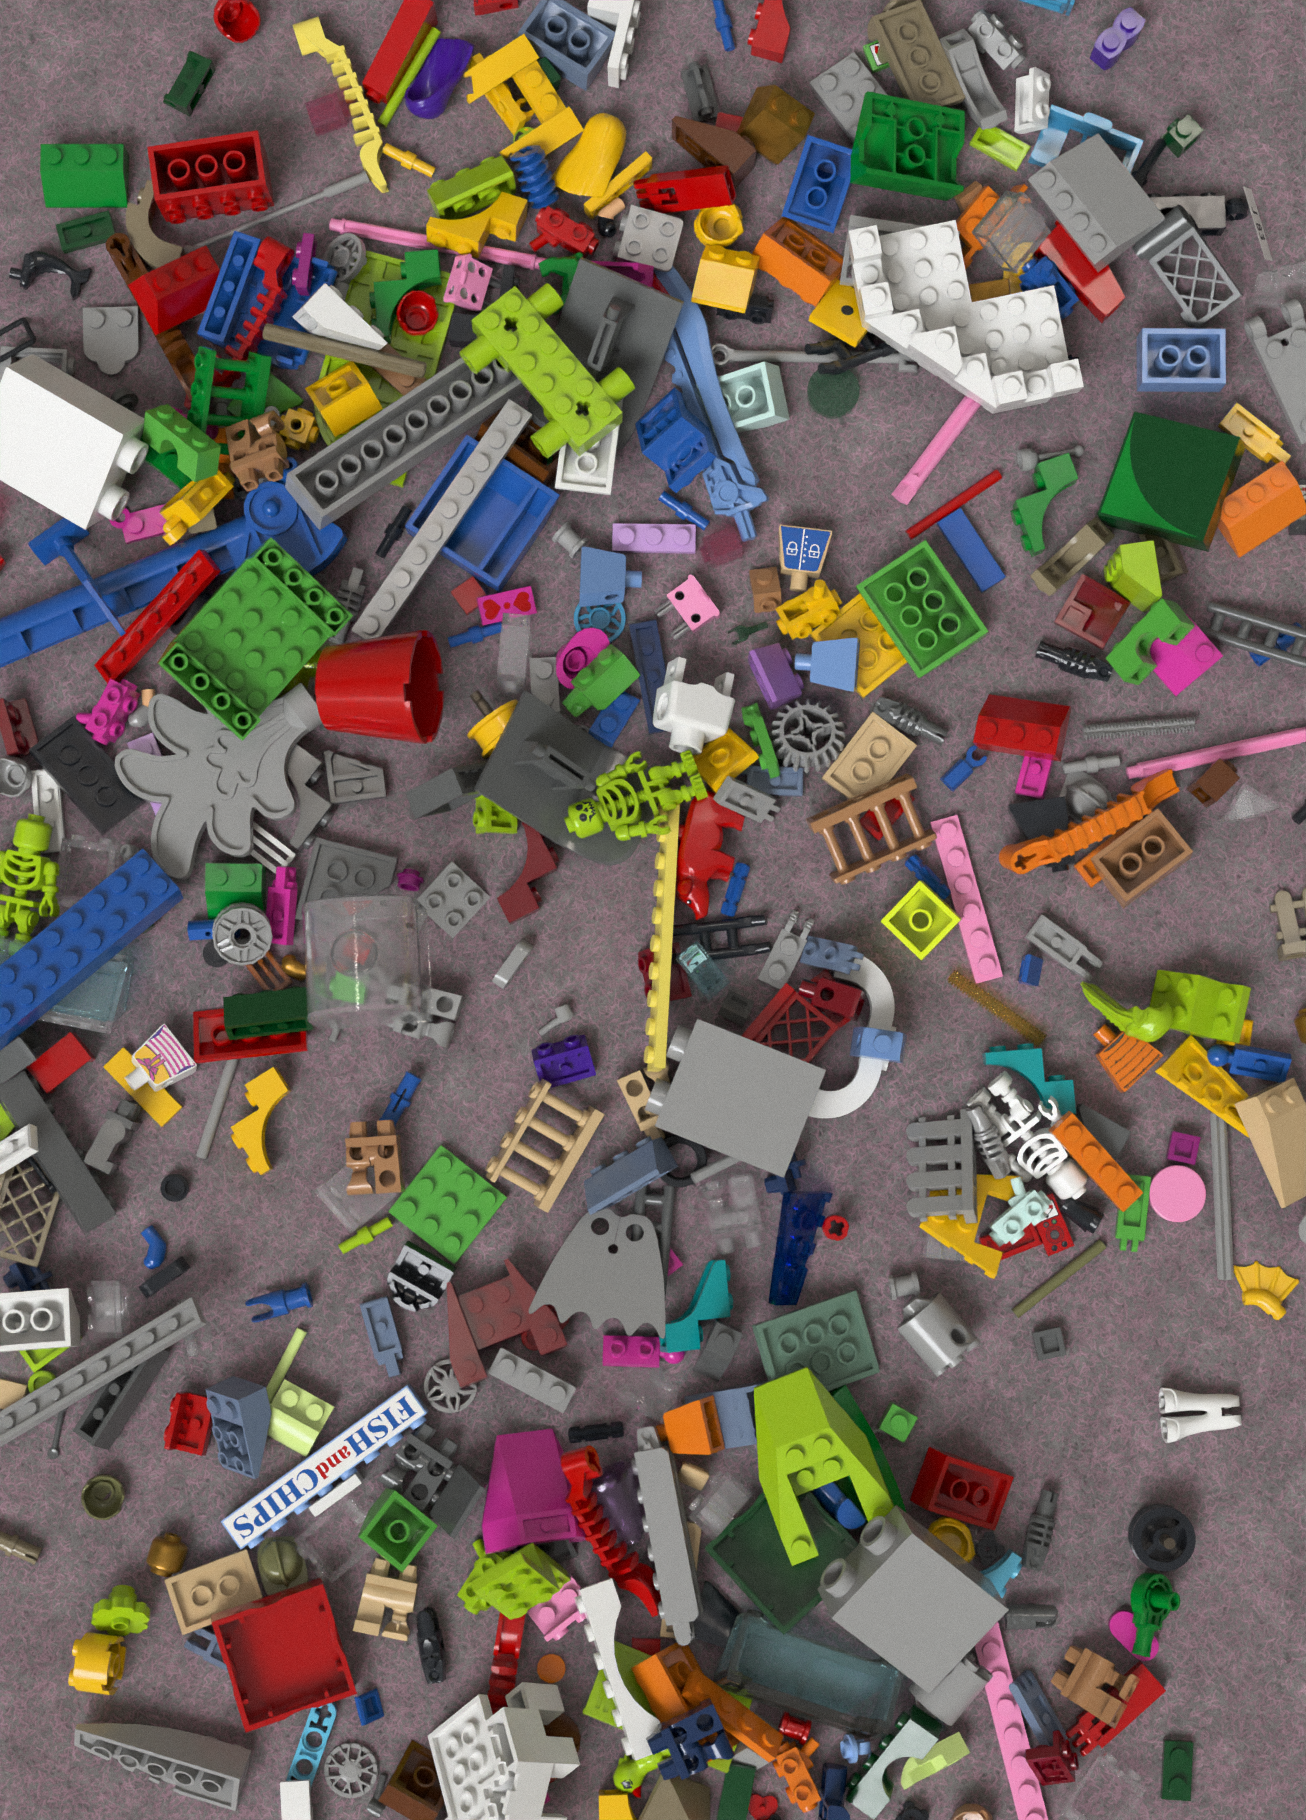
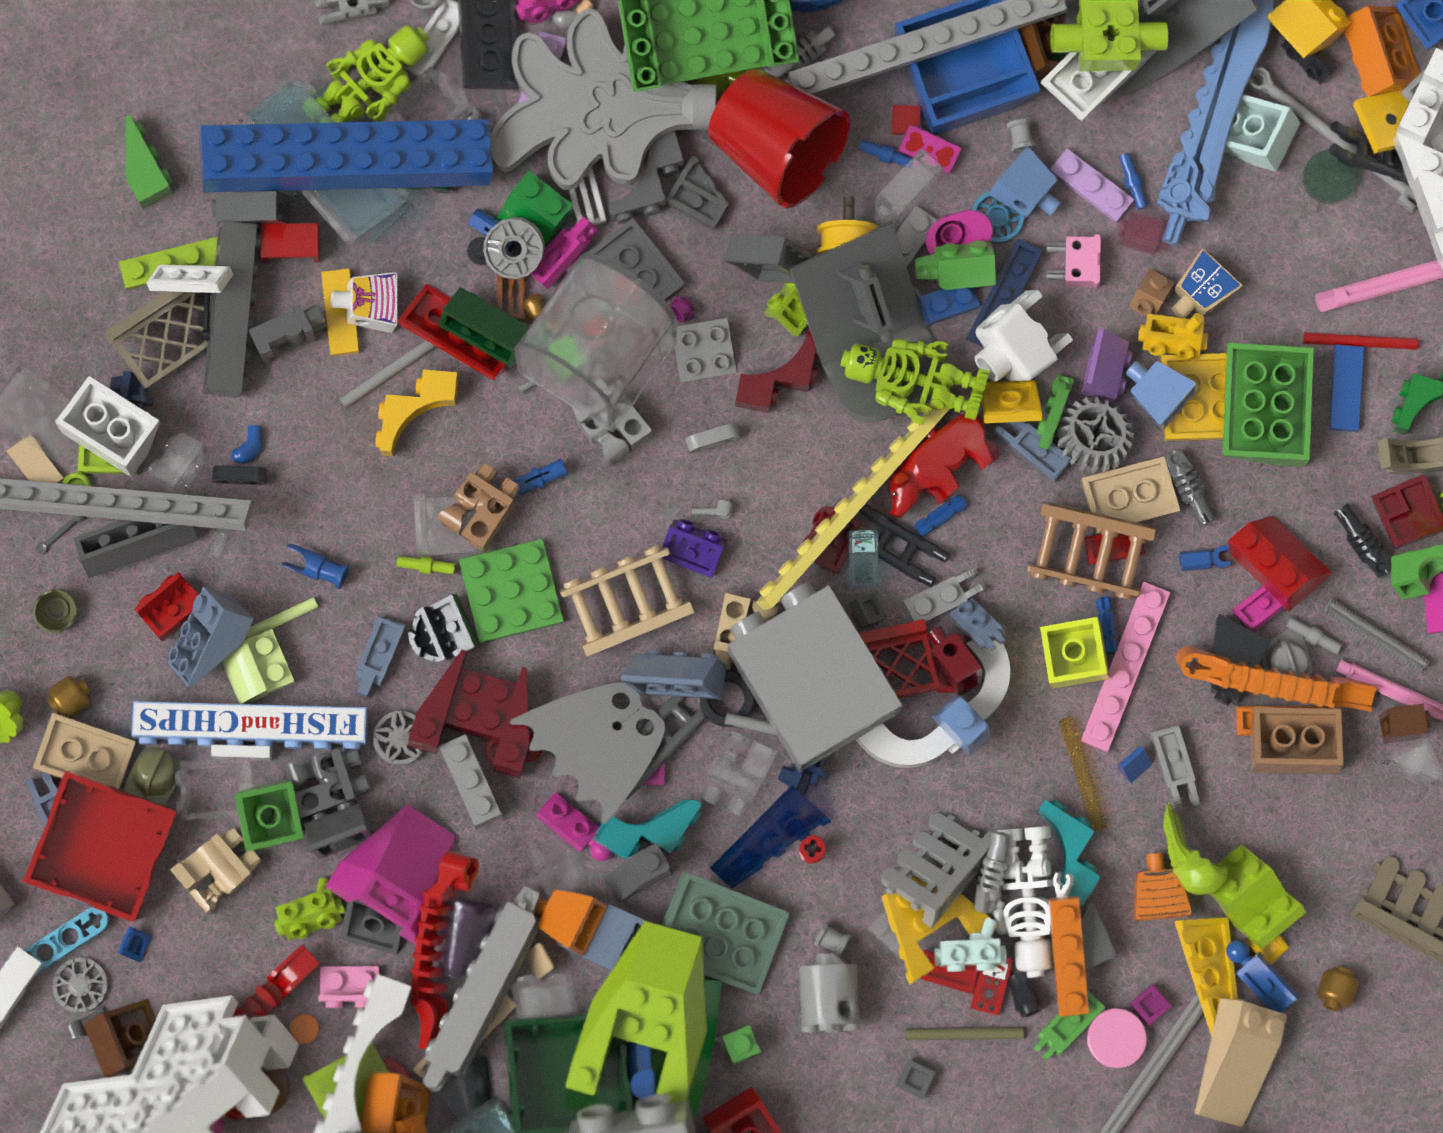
camera: 35 degrees right, 5 degrees down
(174, 1187) = (303, 411): black plate -> none
(393, 532) = (882, 24): black bar -> none
(431, 1646) = (222, 933): black hinge -> none
(521, 1581) = (337, 927): lime bracket -> none
(596, 1432) = (491, 866): black axle -> none
(675, 440) = (1168, 118): blue bracket -> none
(744, 632) = (1107, 315): clear green hand -> none
(746, 800) = (1005, 448): light grey hinge -> none

